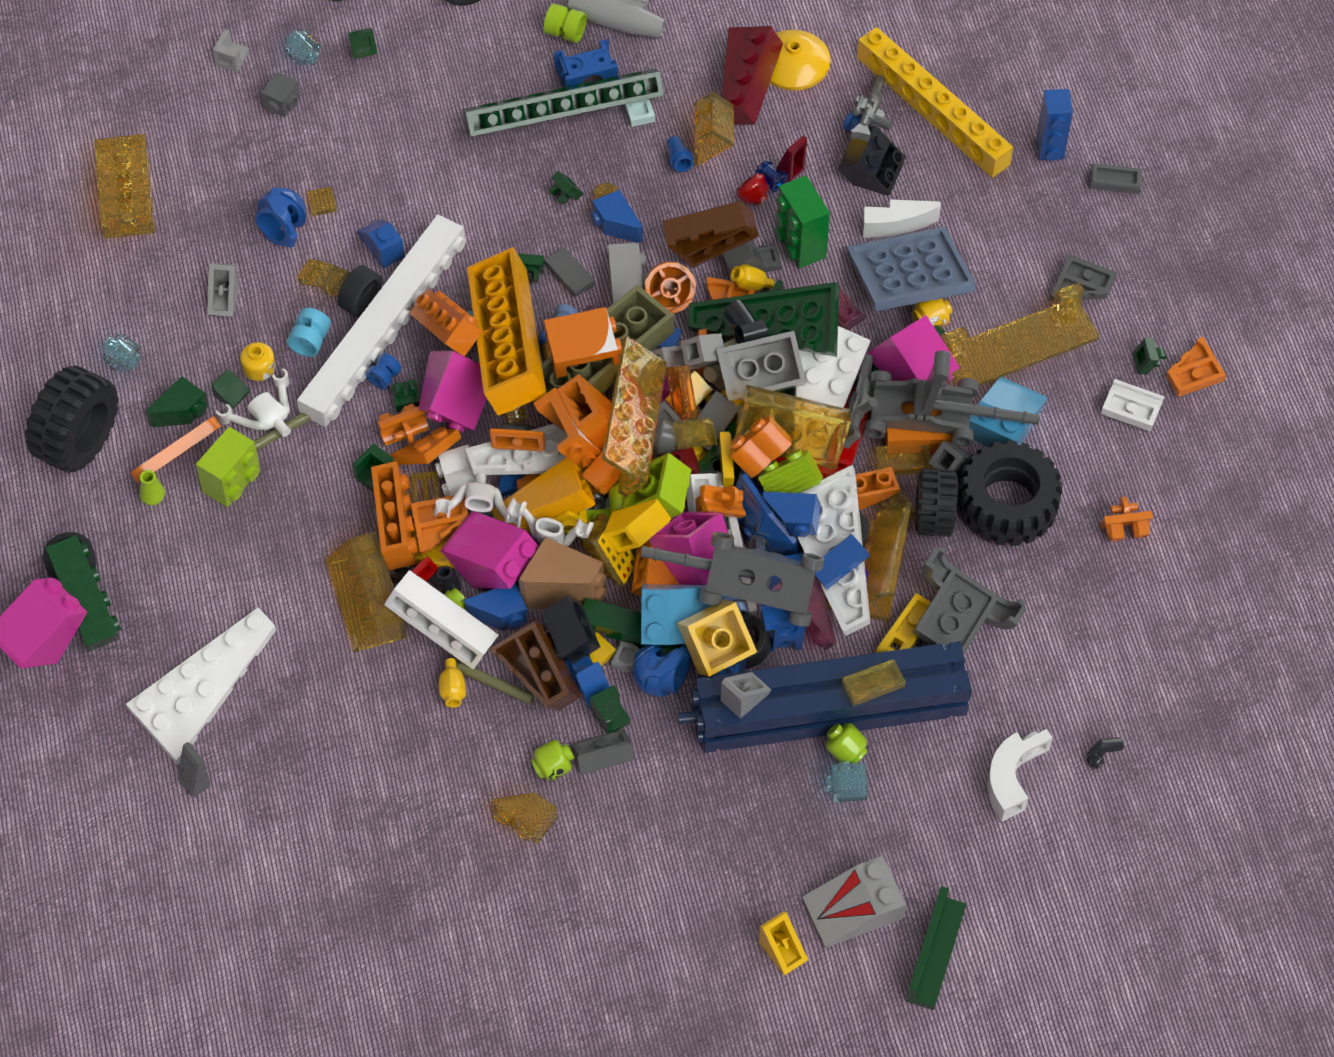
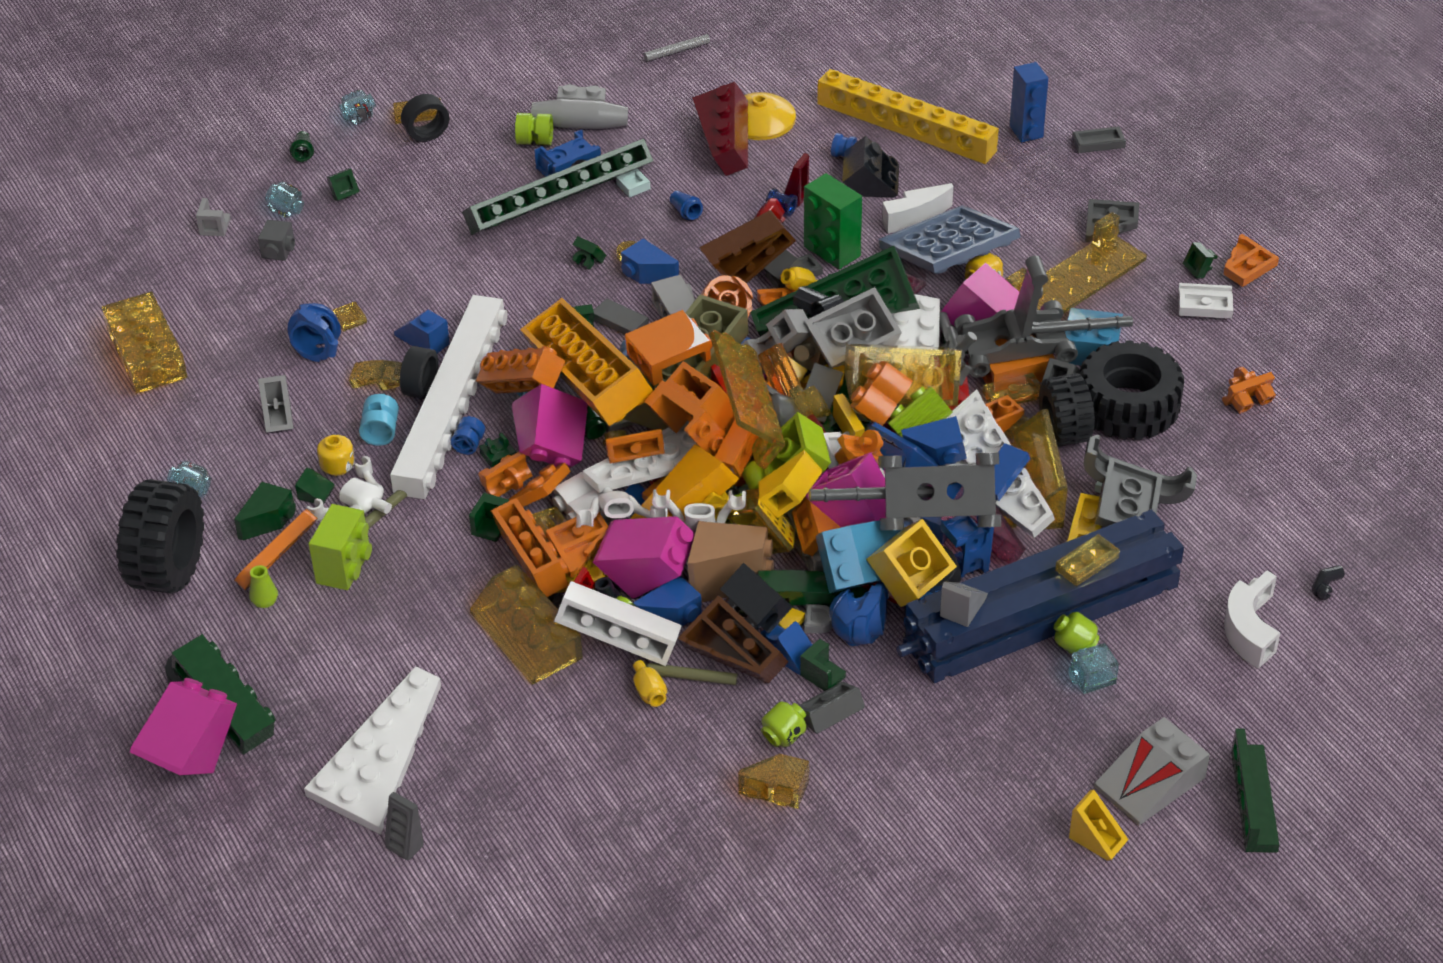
camera: 15 degrees left, 15 degrees down
(712, 127) = (710, 172): clear yellow slope -> none
(871, 111) = (854, 131): dark grey piece -> none

